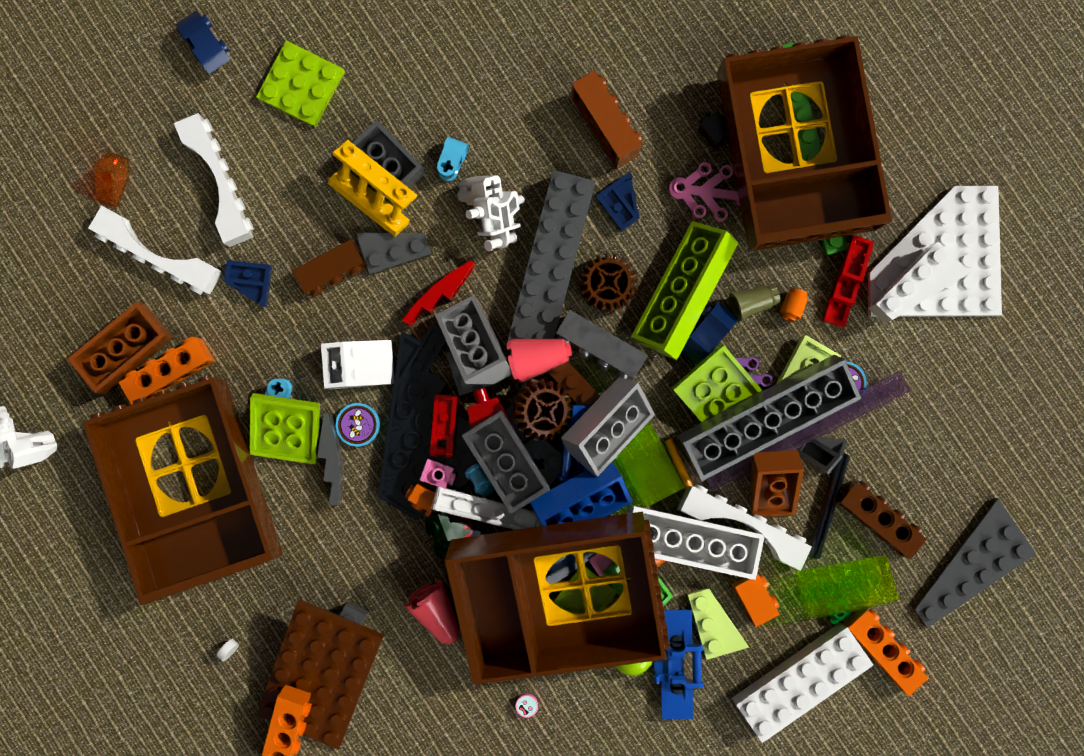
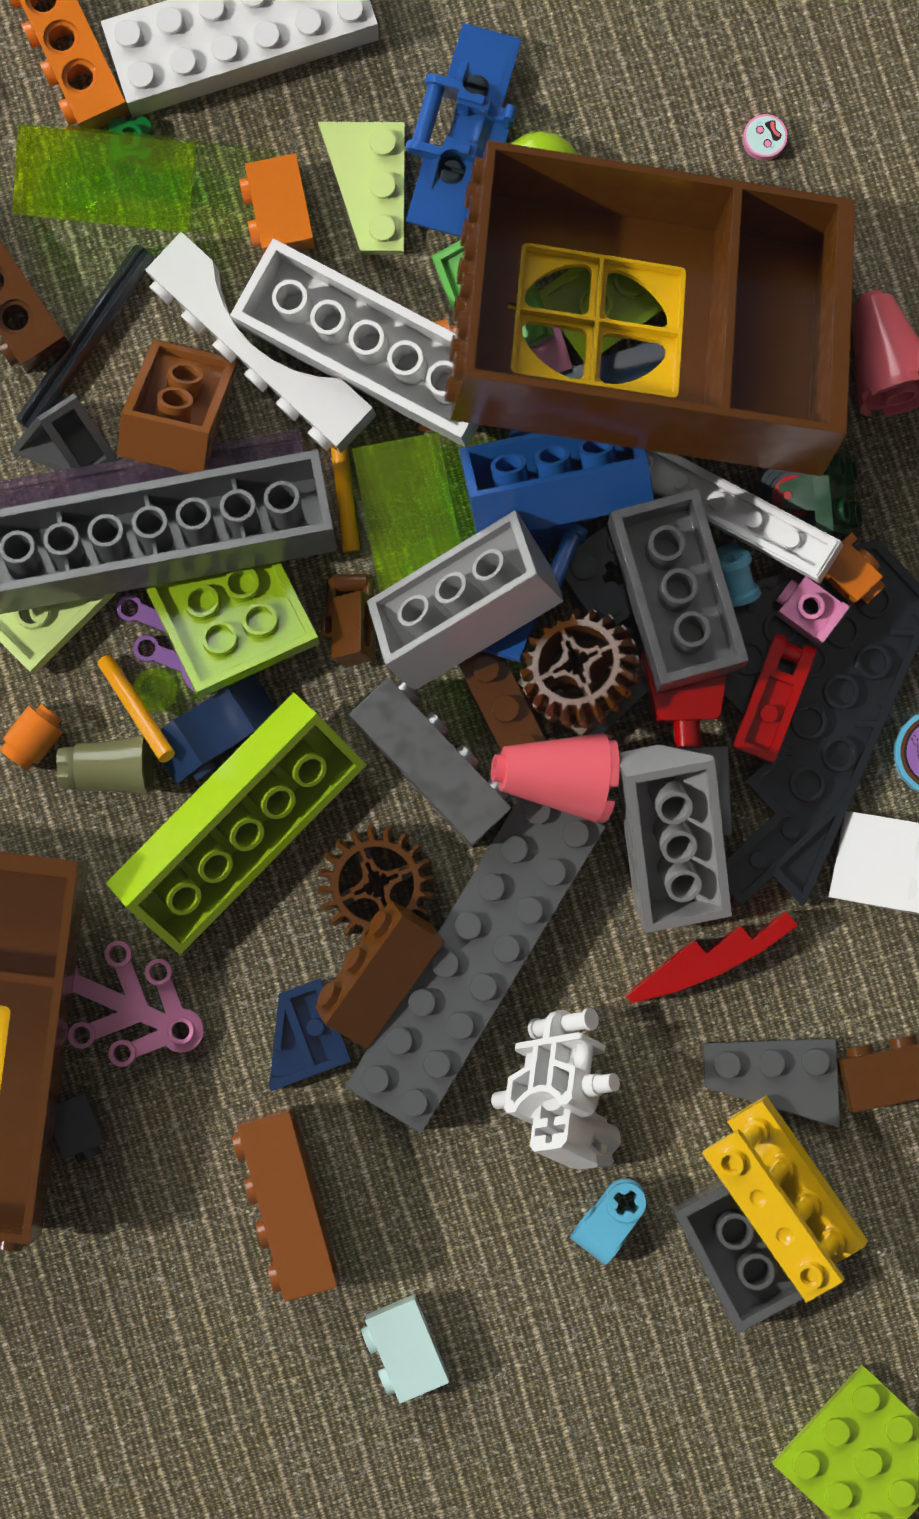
camera: 165 degrees left, 0 degrees up
(530, 71) = (405, 1348): none -> light aqua brick
(595, 238) = (378, 974): none -> reddish brown brick
(661, 405) = (349, 619): none -> reddish brown piece
(742, 345) = (156, 689): none -> clear neon green plate
(748, 331) = (136, 708): none -> light orange bar

